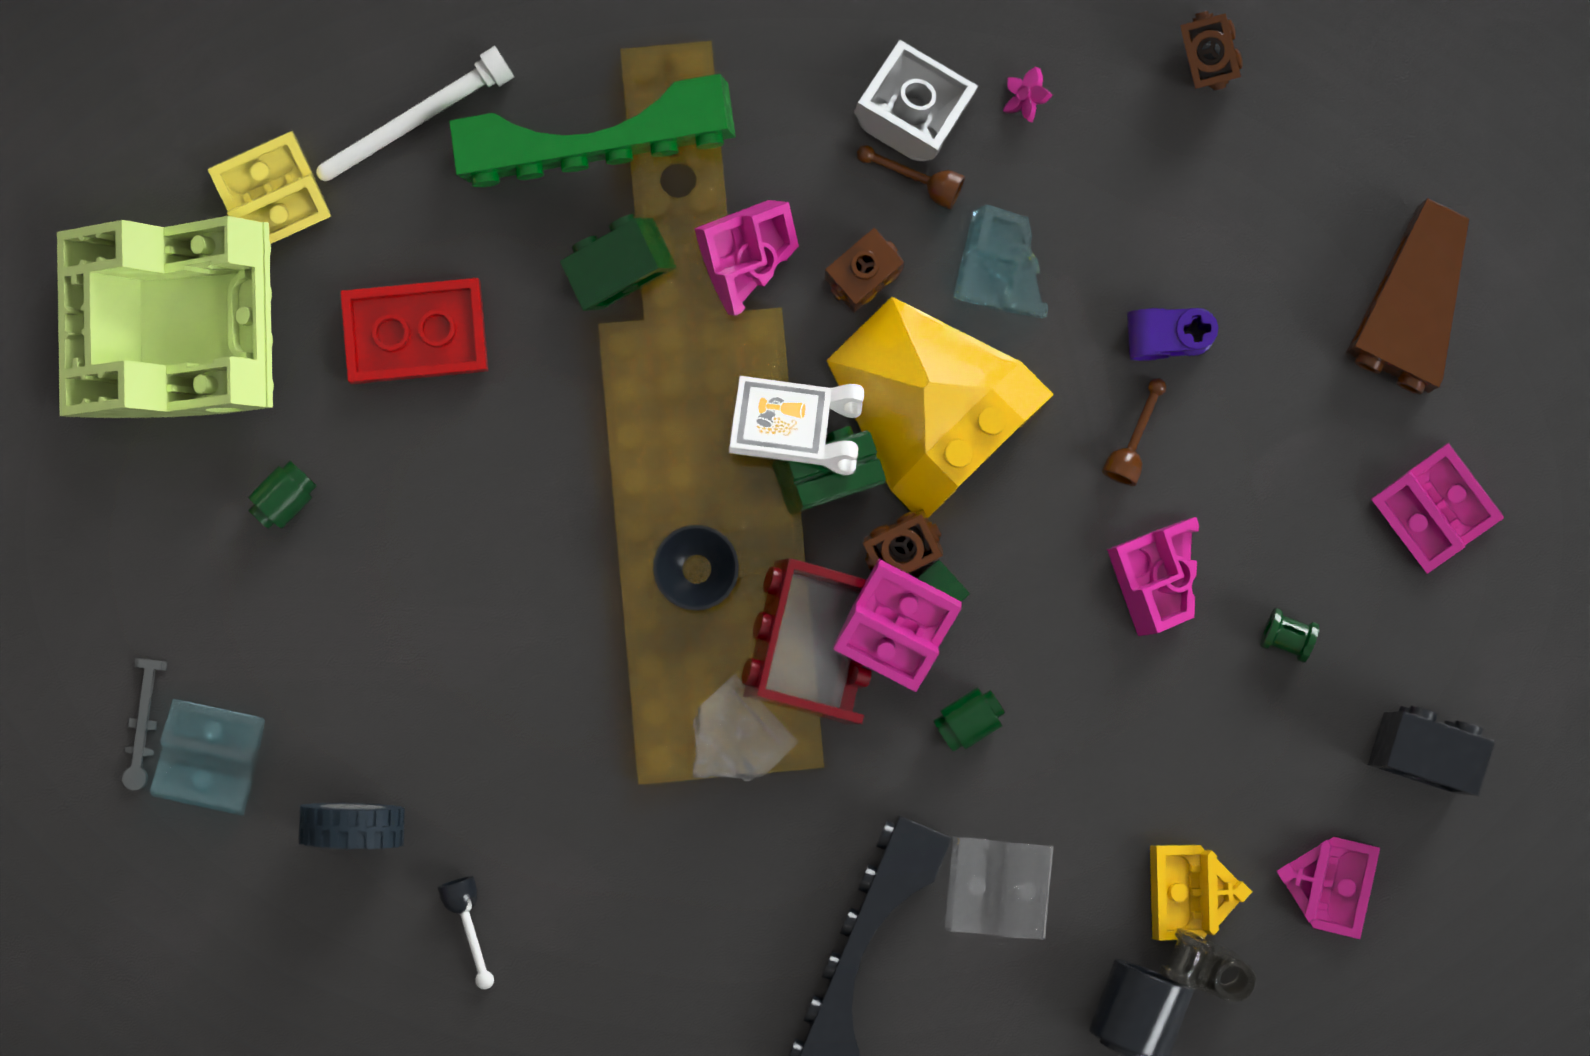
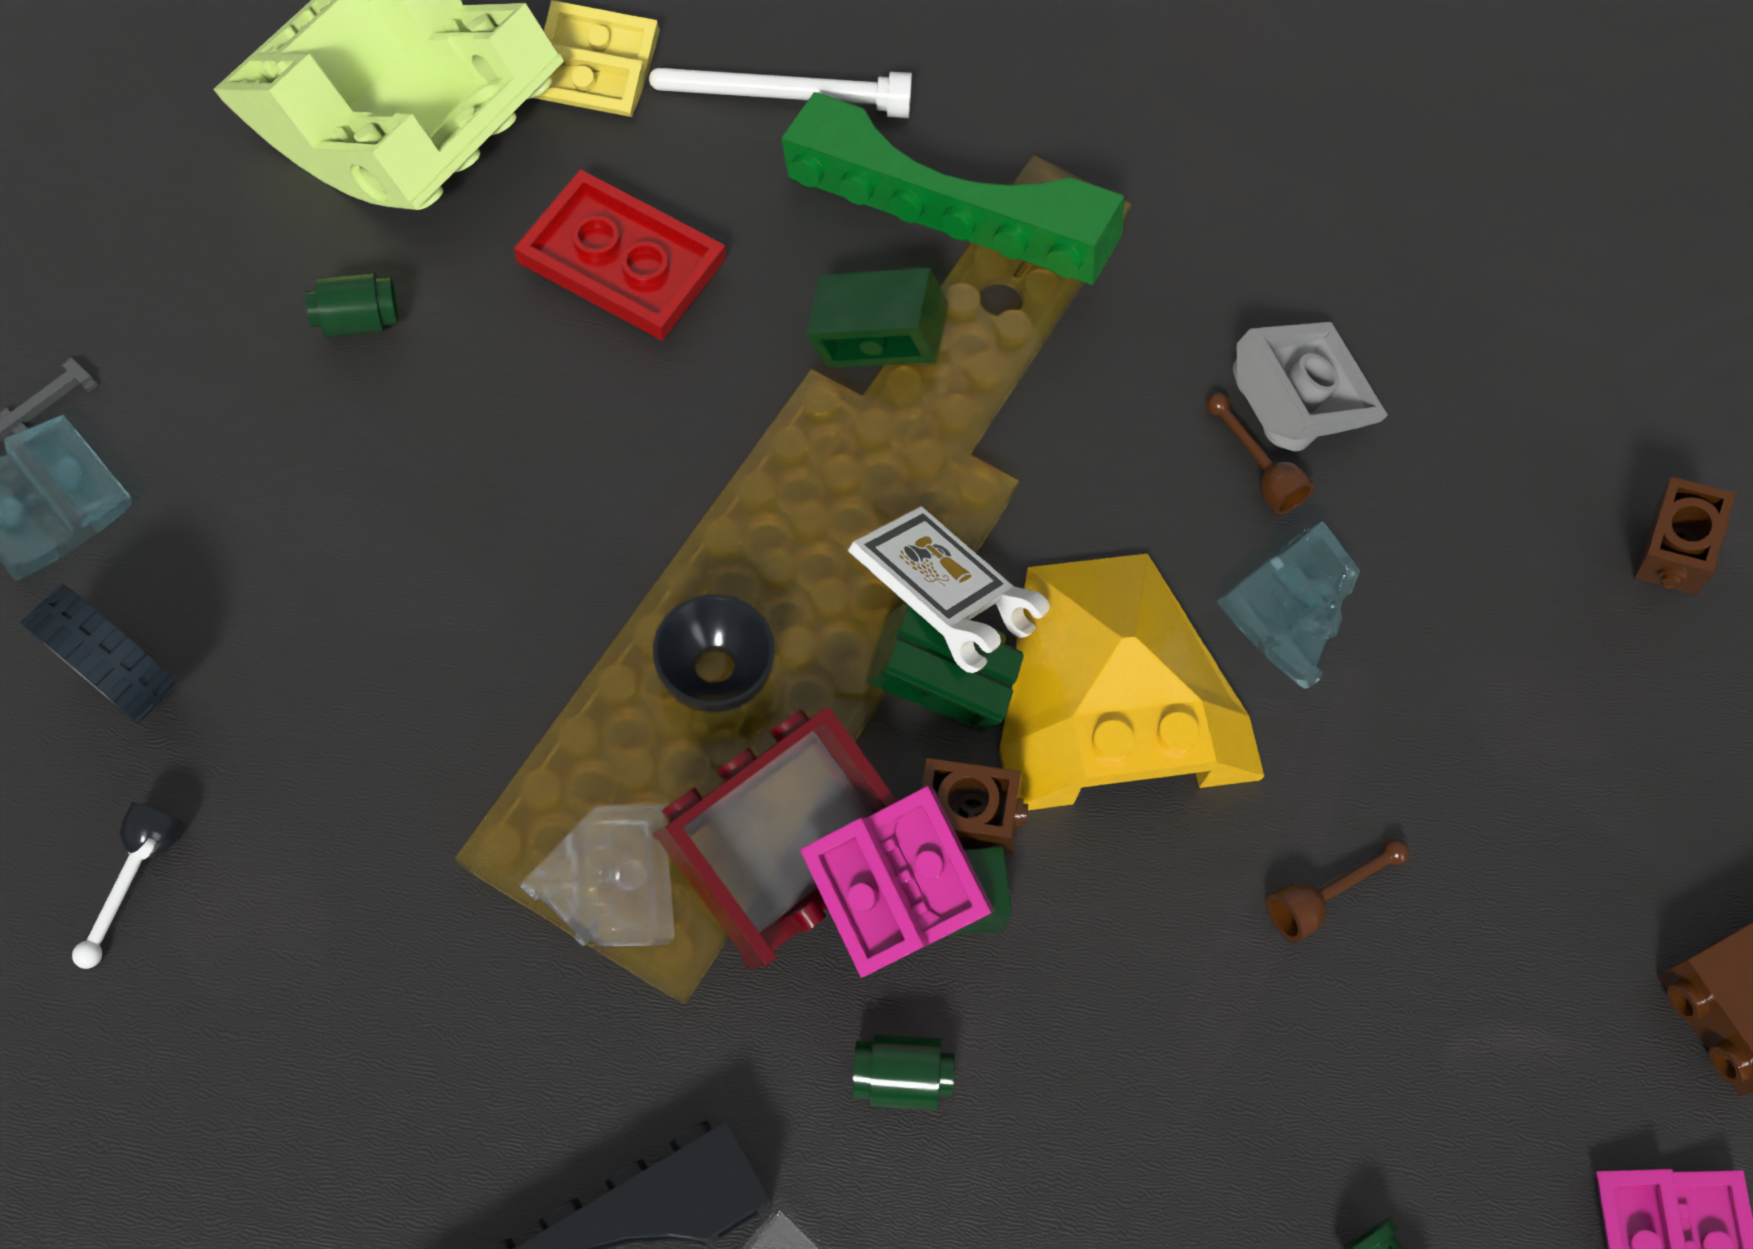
camera: 30 degrees right, 20 degrees down
(746, 249) = (1023, 397): dark pink slope -> none
(858, 287) = (1137, 499): reddish brown head -> none
(1027, 94) = (1438, 458): dark pink plant -> none
(1158, 576) = (1256, 1071): dark pink slope -> none
(1161, 335) = (1450, 797): dark purple piece -> none

